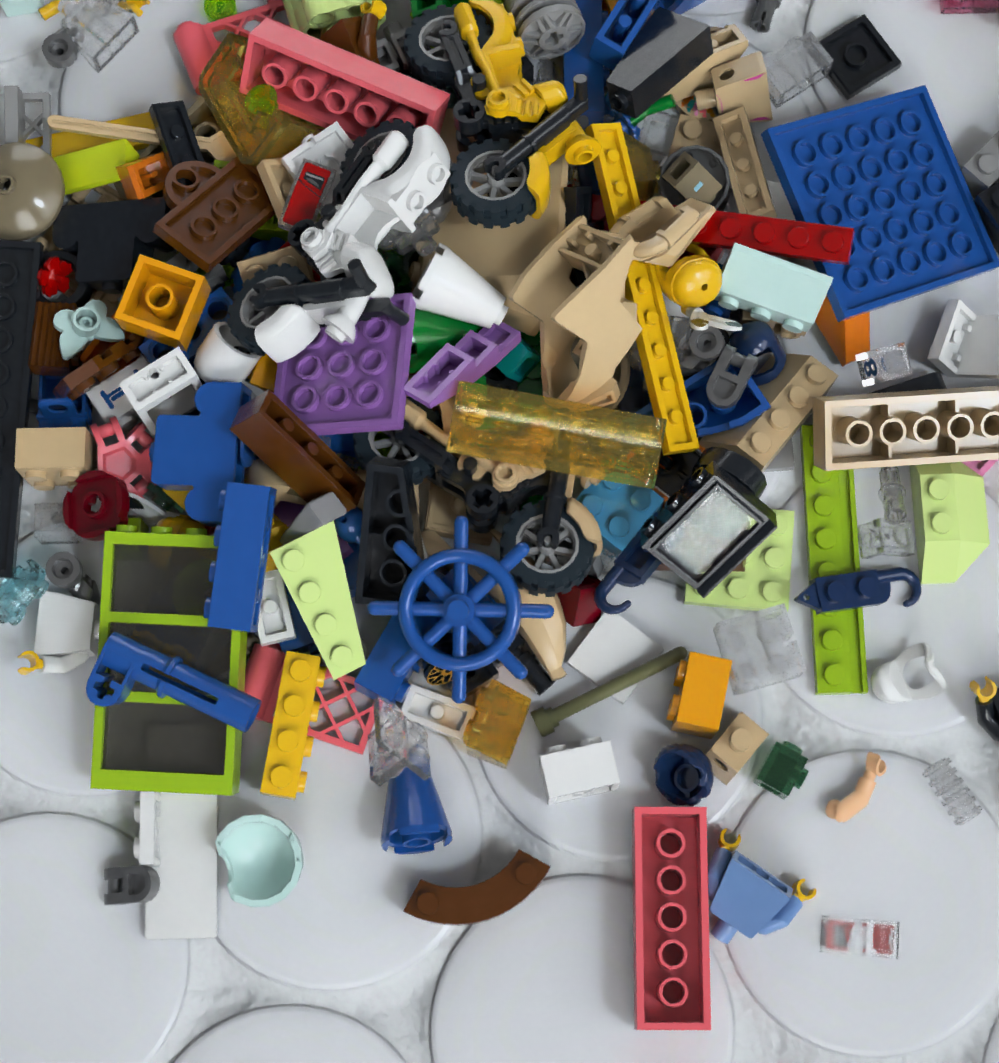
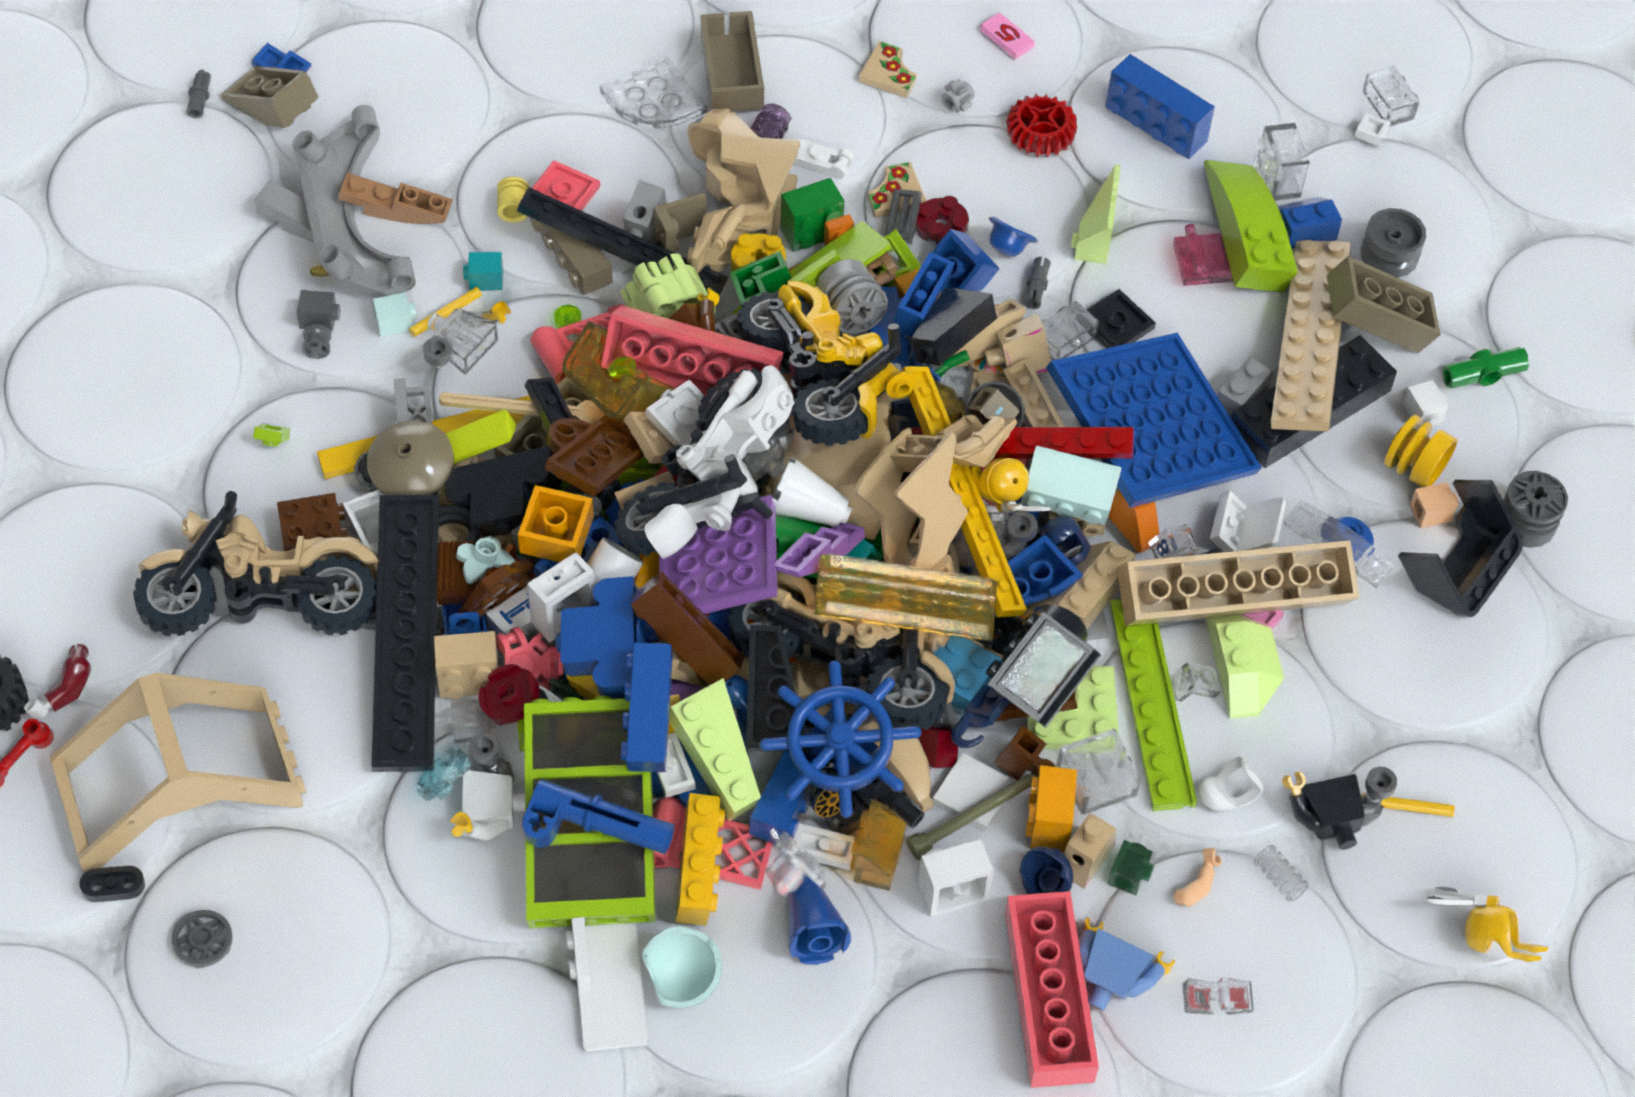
camera: 10 degrees left, 20 degrees down
(54, 277) = (450, 523): red plant -> none
(131, 885) = (575, 1000): flat silver plate -> none
(143, 176) = (524, 435): orange slope -> none
(307, 194) = (671, 432): slope -> none
(314, 515) = (706, 674): light grey slope -> none
(480, 901) = (879, 991): reddish brown brick -> none
(675, 620) = (1023, 754): none -> reddish brown brick
(726, 388) = (1041, 560): flat silver plate -> none
(857, 590) = (1175, 720): dark blue plate -> none
(892, 495) = (1195, 645): clear axle -> none

